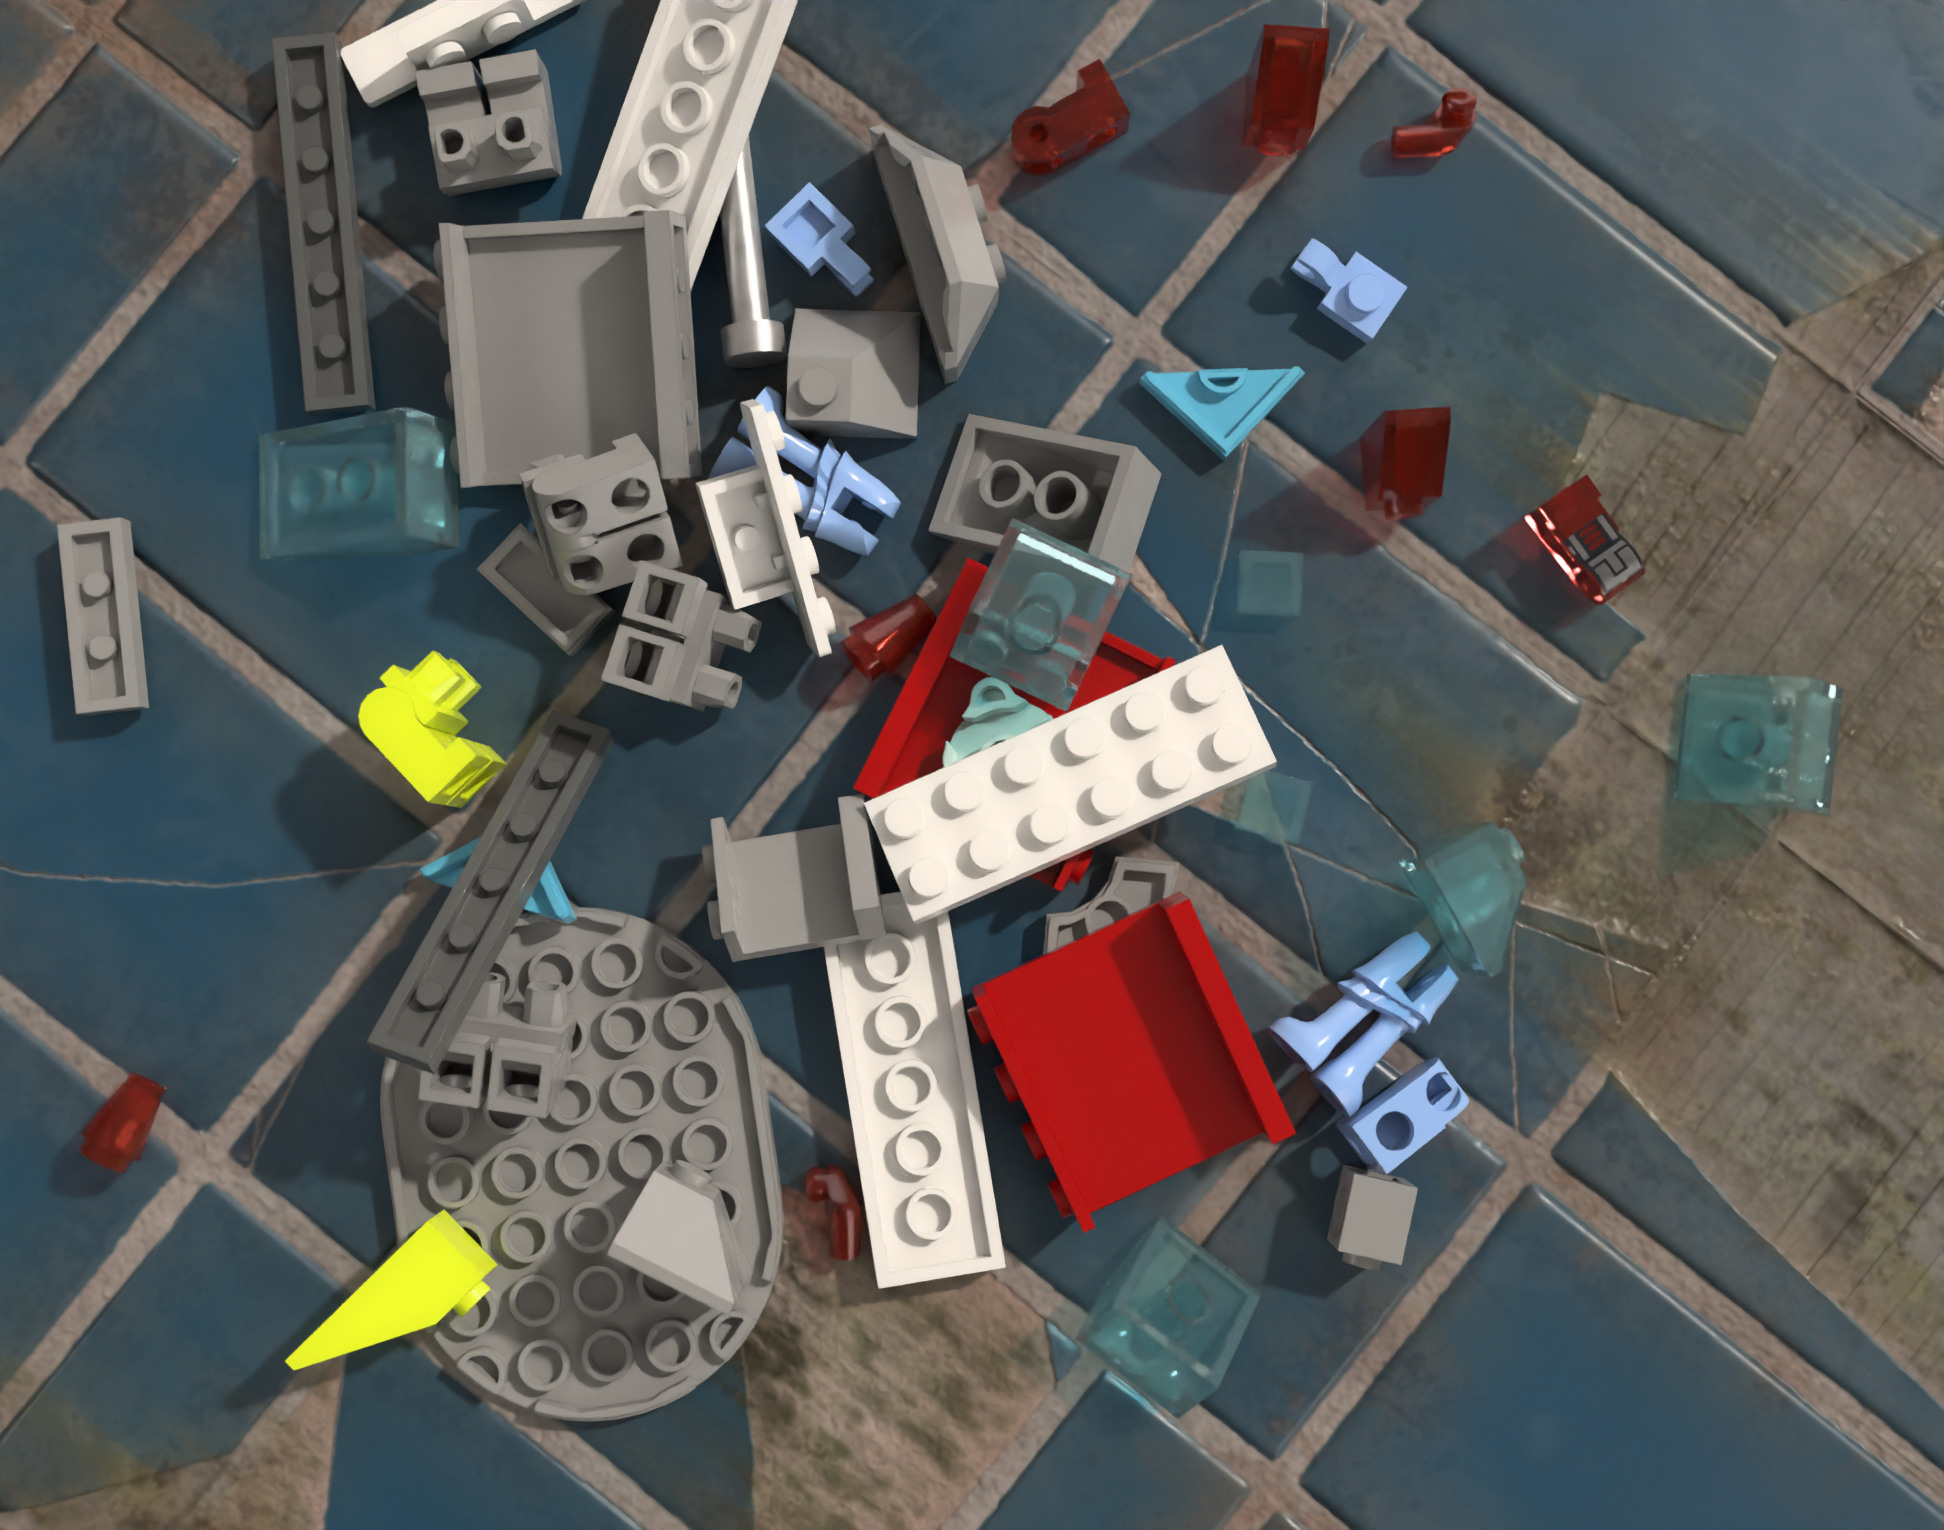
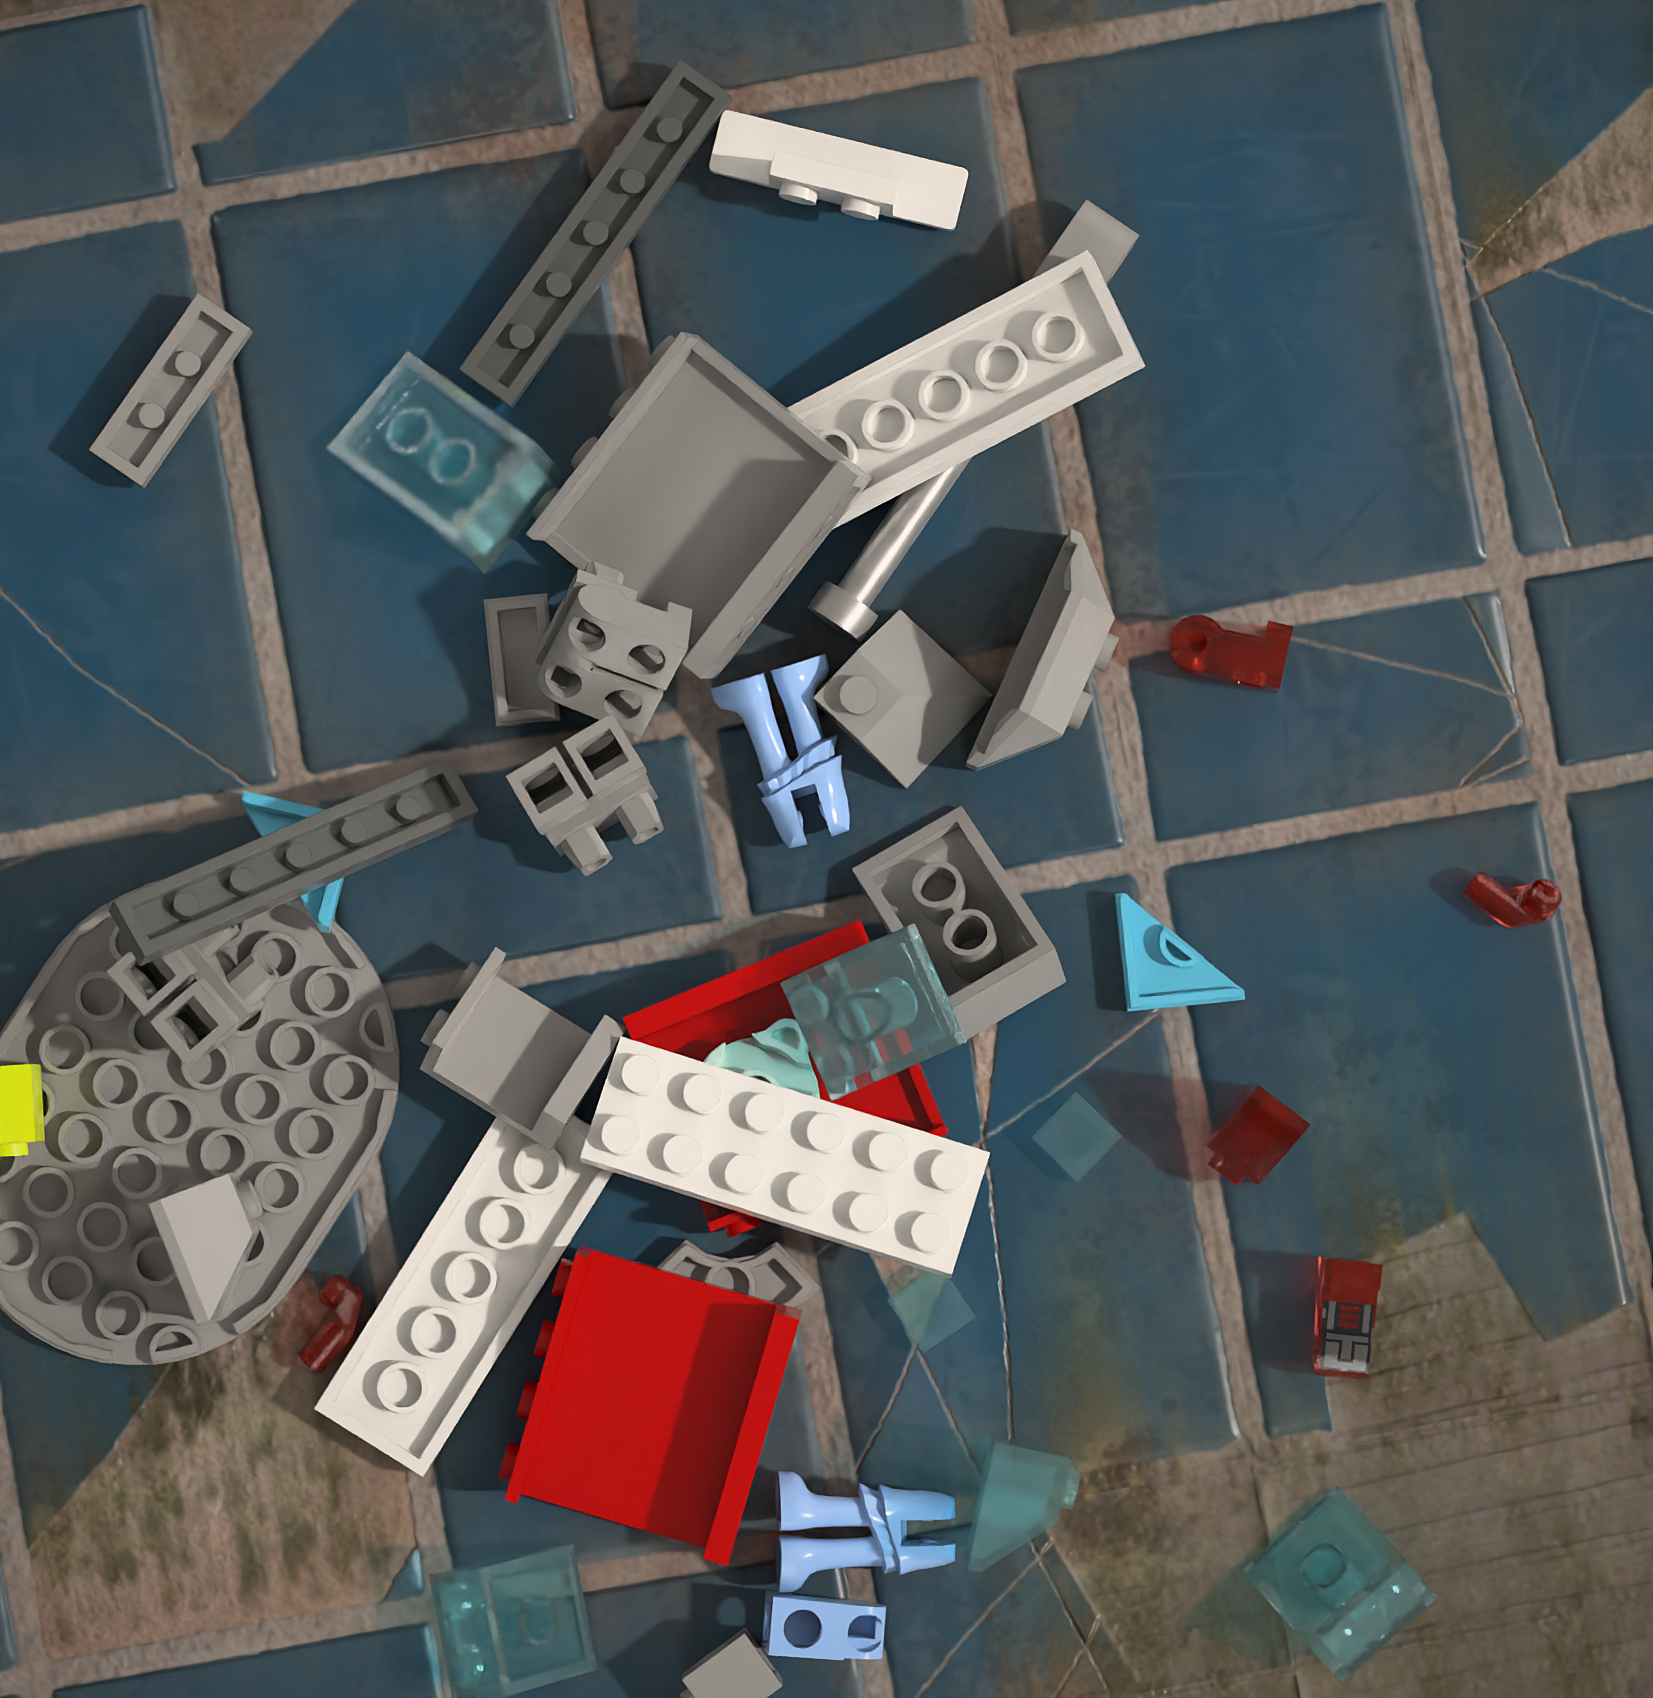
camera: 40 degrees right, 0 degrees up
(417, 726) = (331, 687): neon yellow hips -> none
(486, 149) = (782, 299): light grey hips -> none
(758, 535) = (717, 764): white bracket -> none
(817, 235) = (963, 567): light blue plate -> none
(886, 638) = (750, 924): clear red cone -> none
(1284, 88) = (1410, 774): clear red slope -> none
(1356, 294) = (1340, 972): light blue plate -> none

